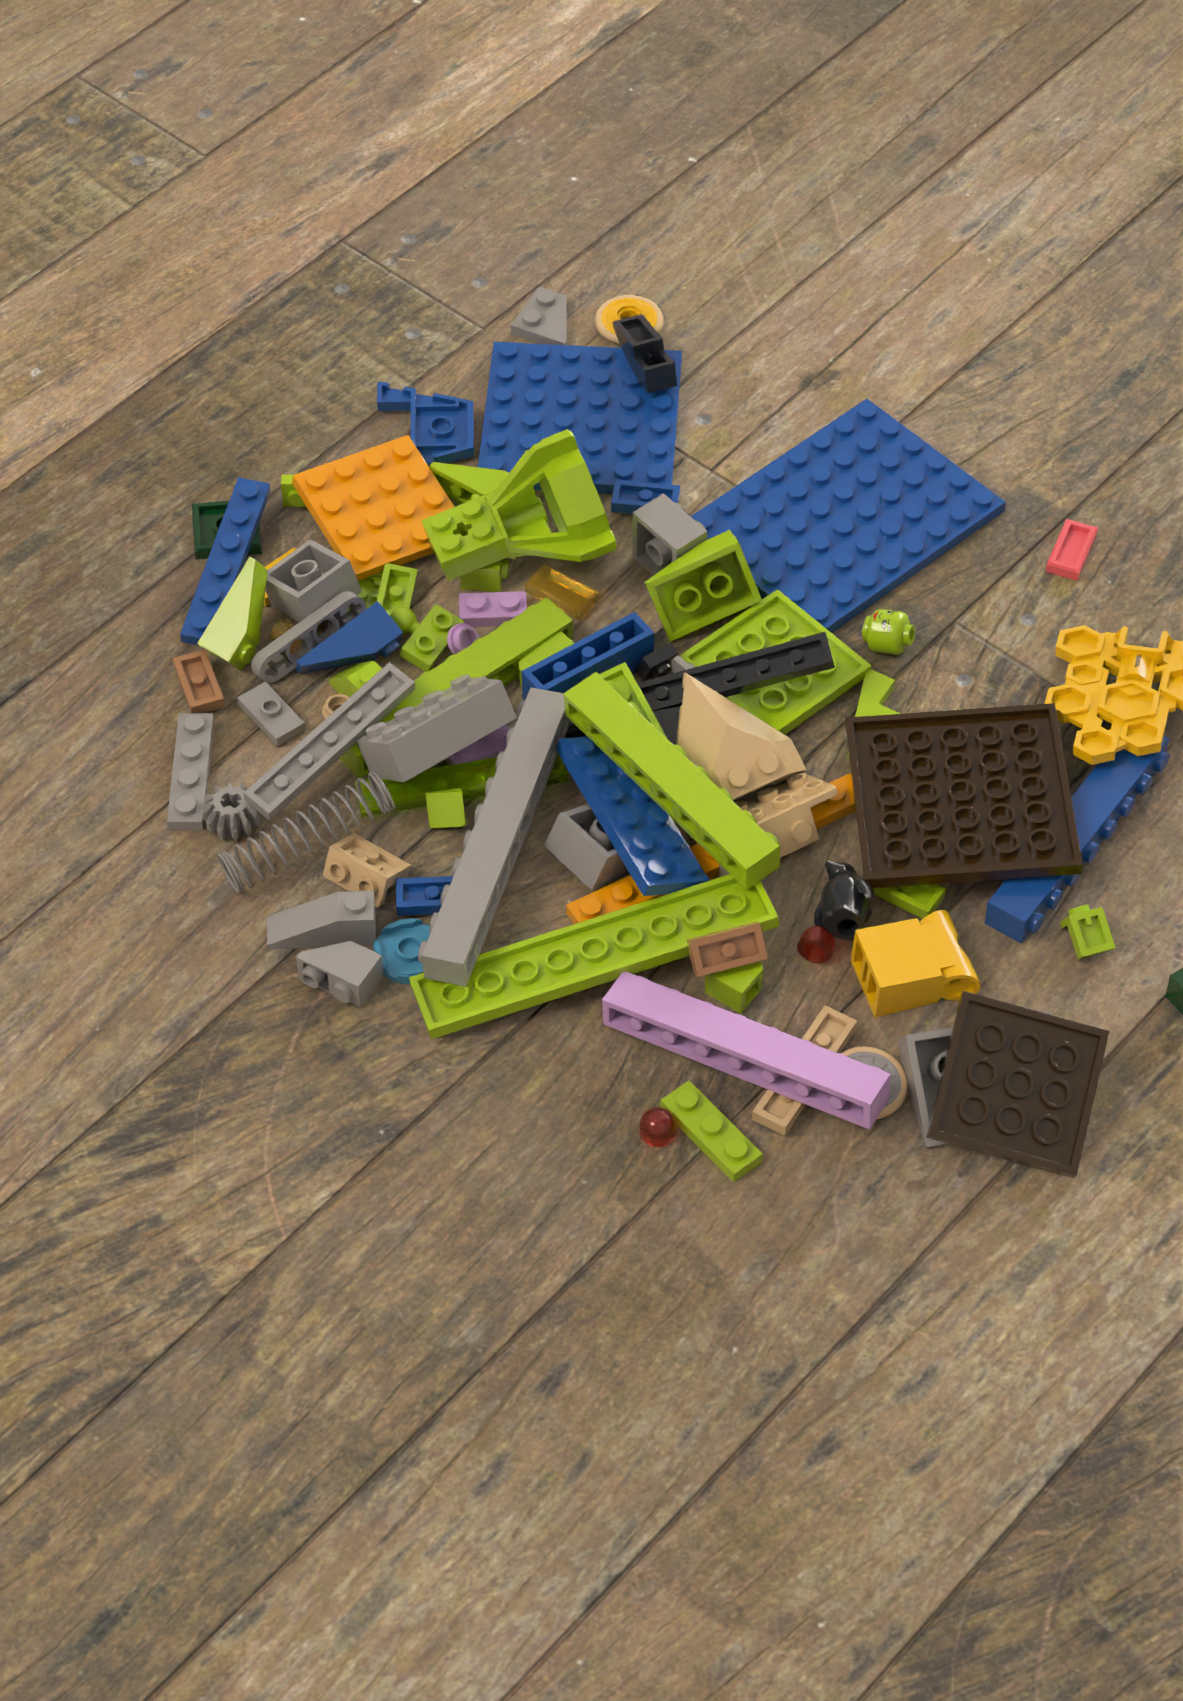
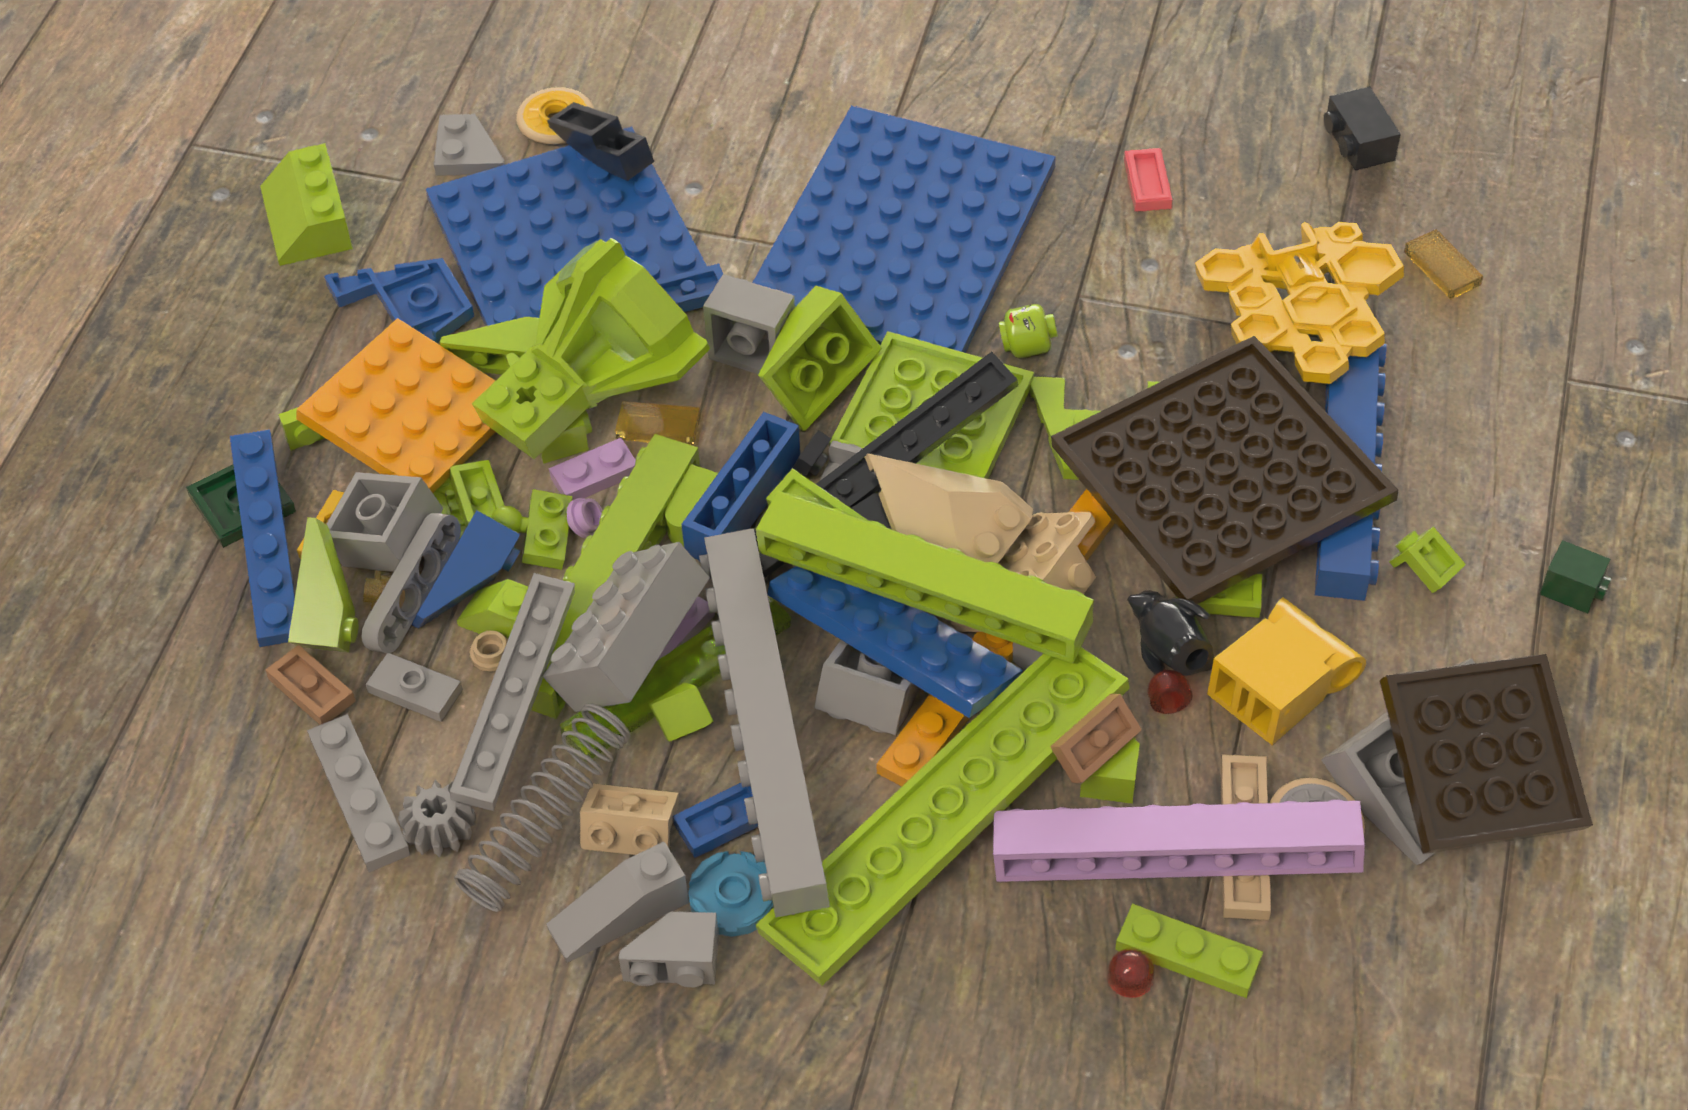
camera: 25 degrees left, 0 degrees up
(396, 322) = (305, 207): none -> lime slope

